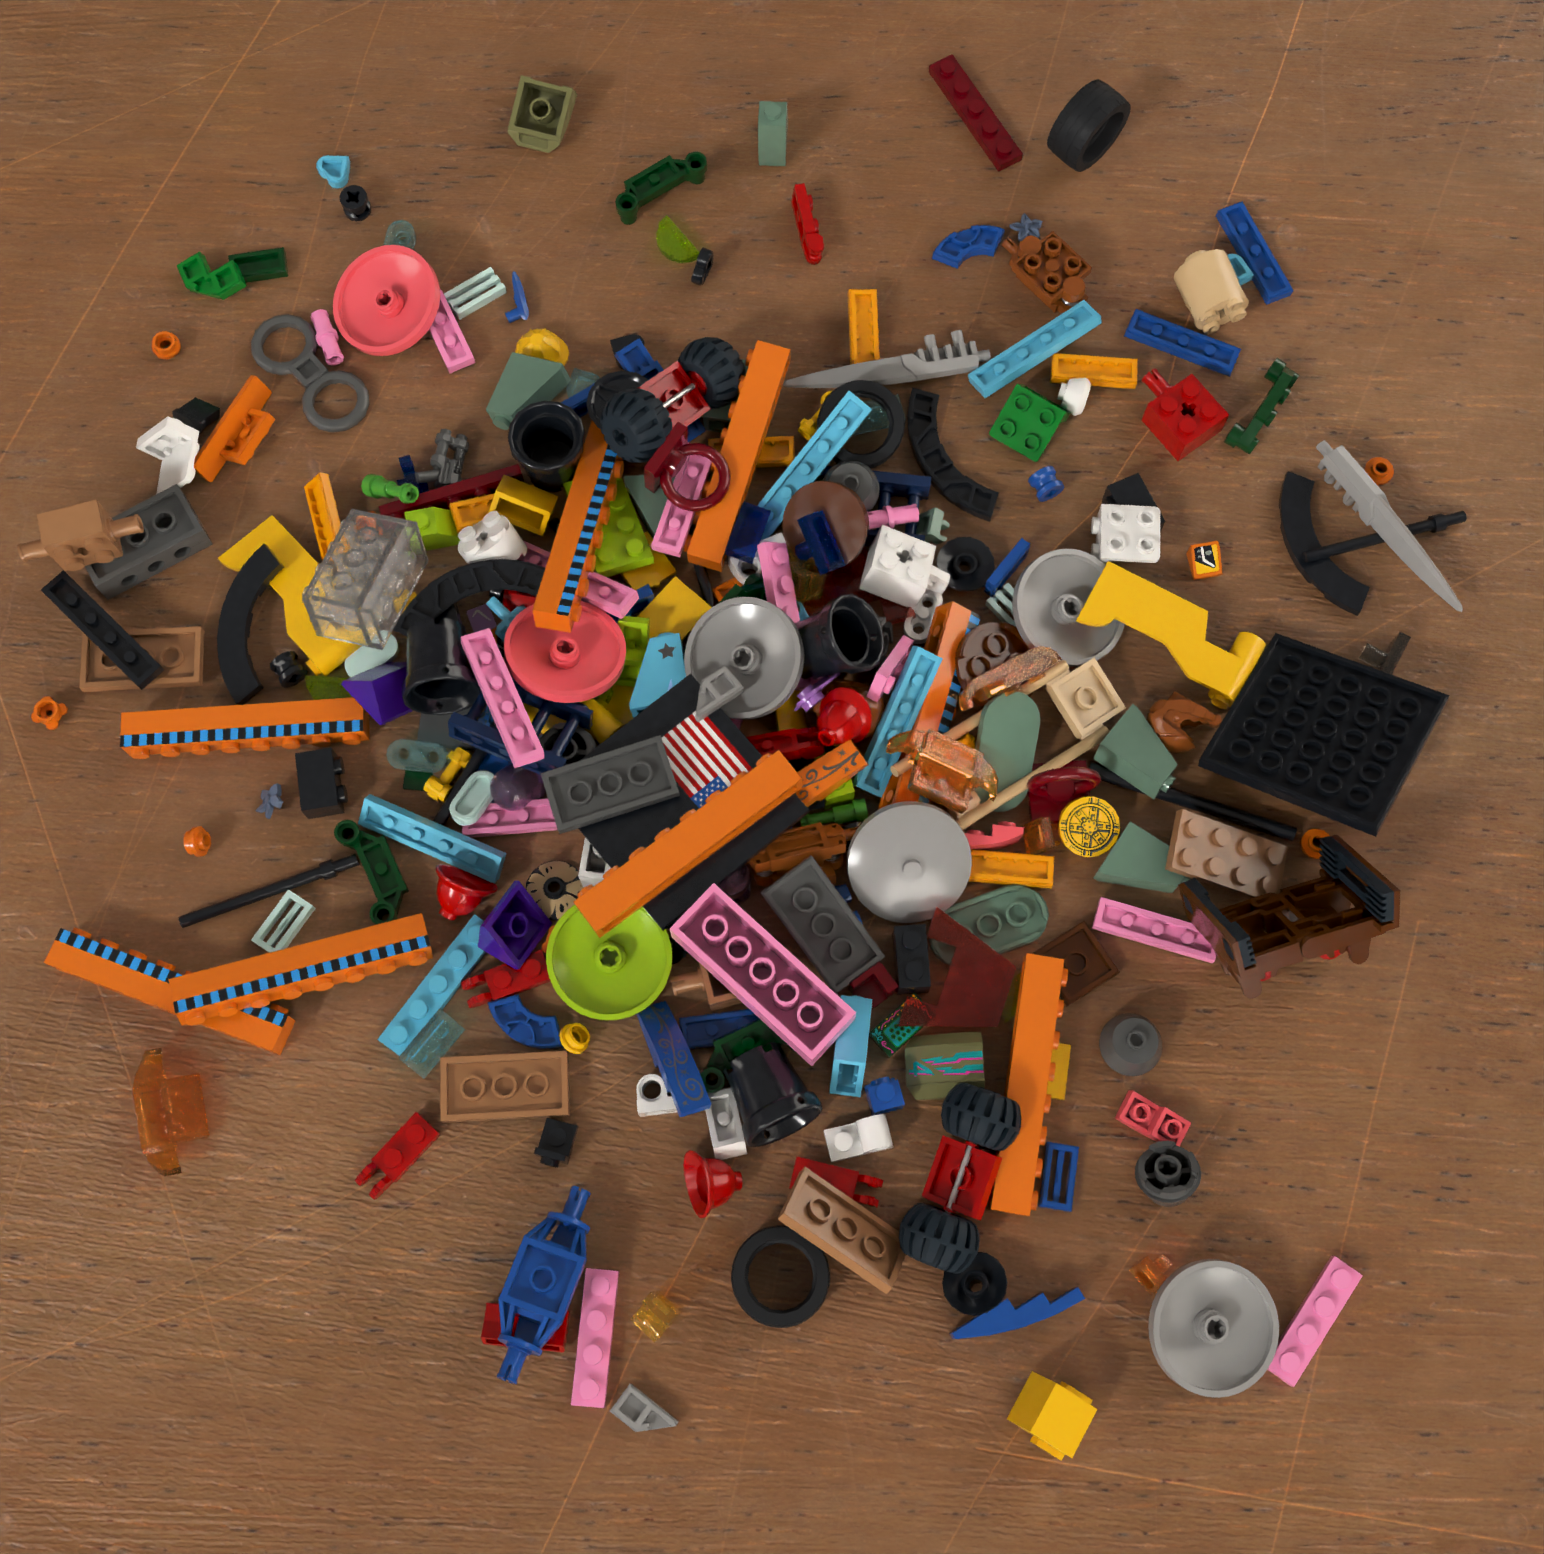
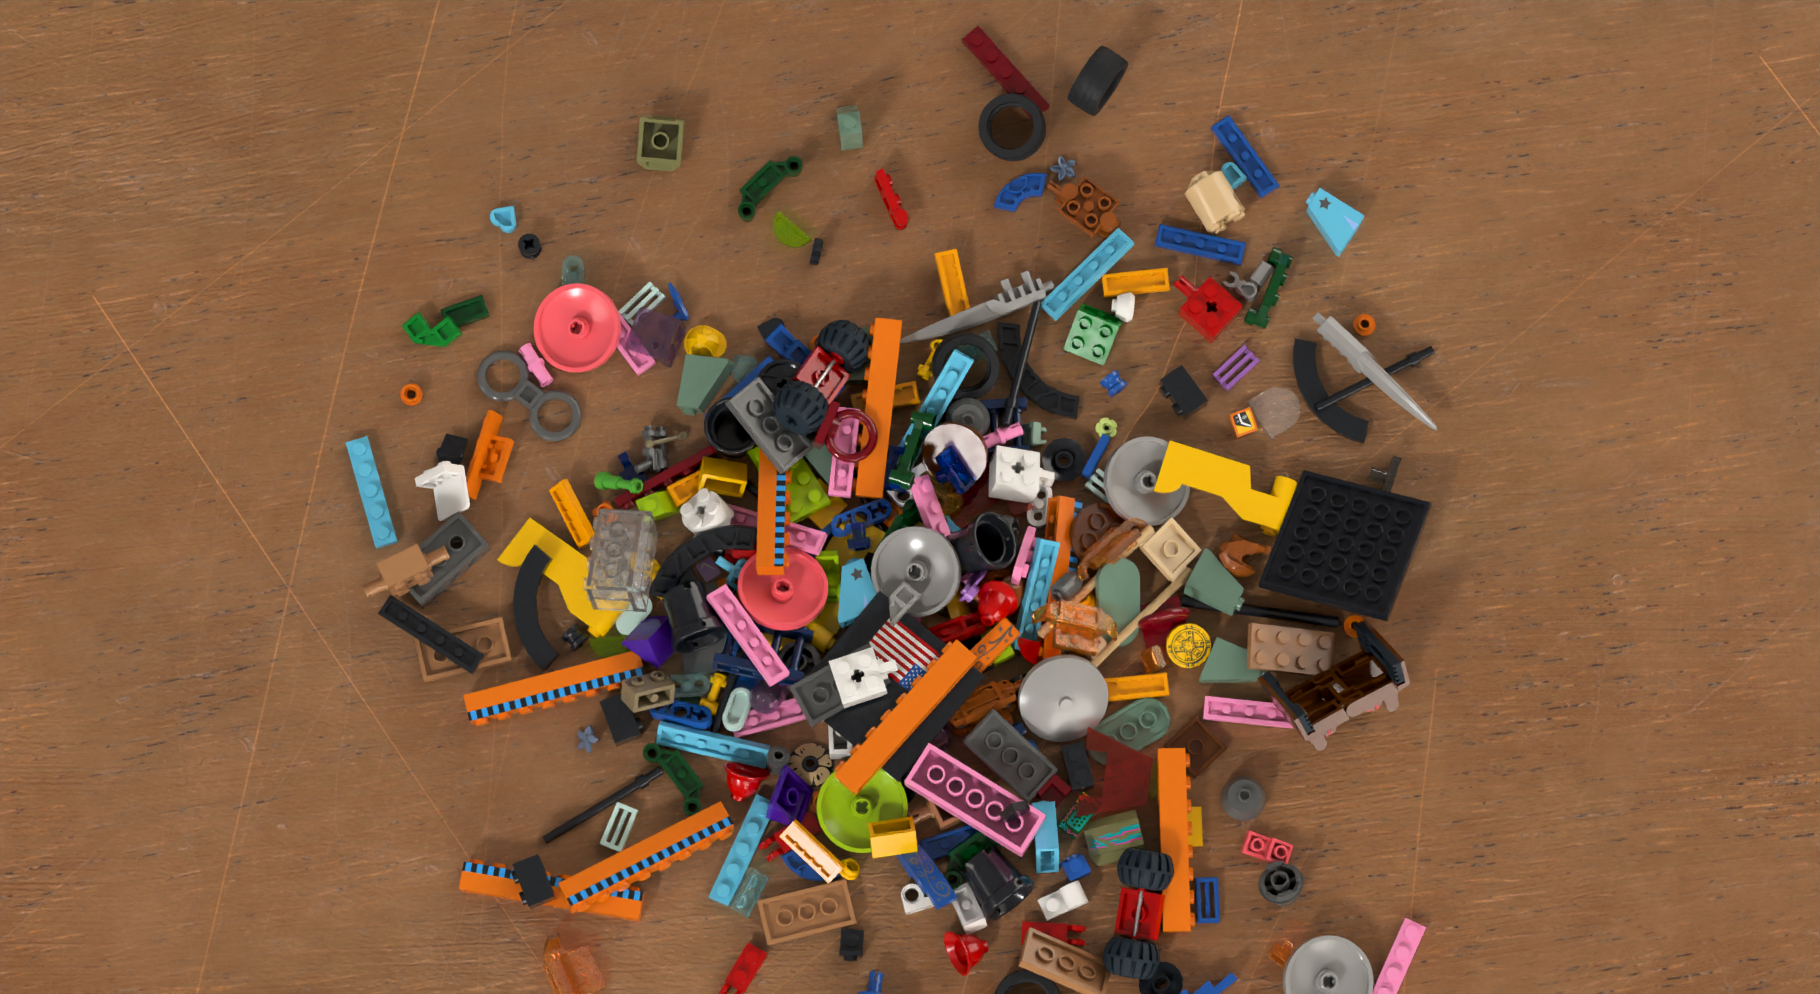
camera: 10 degrees left, 5 degrees up
(43, 707) = (400, 698): orange plate -> none
(84, 443) = (371, 492): none -> medium azure plate
(140, 972) = (533, 881): none -> black brick
(197, 841) = (542, 779): orange plate -> none
(358, 750) = (647, 691): none -> dark tan brick
(405, 799) = (686, 720): none -> blue beam
(483, 327) = (656, 336): none -> bracket
(486, 452) = (682, 435): none -> dark tan hinge
(510, 869) = (776, 758): none -> dark grey brick
(528, 1003) = (812, 851): none -> plate
(576, 421) = (755, 413): none -> dark grey tile
(640, 1005) = (892, 837): none -> yellow brick
(651, 784) = (872, 682): none -> white hinge
(679, 610) = (859, 541): none -> clear blue tile
(680, 595) = (864, 509): none -> blue beam
(774, 501) = (912, 444): none -> dark green plate
(812, 997) = (1014, 810): none -> black tile
(840, 814) = (1008, 669): bright green piece -> none
(875, 790) = (1029, 649): none -> red tile
(912, 476) = (1011, 402): none -> black bar
(941, 716) = (1066, 586): none -> dark grey brick
(967, 134) = (988, 115): none -> black tyre
(1000, 836) = (1125, 664): coral slope -> none
(1027, 529) = (1111, 424): none -> yellowish green plate
(1126, 533) = (1180, 415): white bracket -> none
(1223, 482) = (1249, 355): none -> medium lavender tile
(1237, 403) = (1246, 289): none -> light grey bar
(1249, 554) = (1276, 410): none -> clear tile
(1357, 339) = (1333, 219): none -> medium azure slope

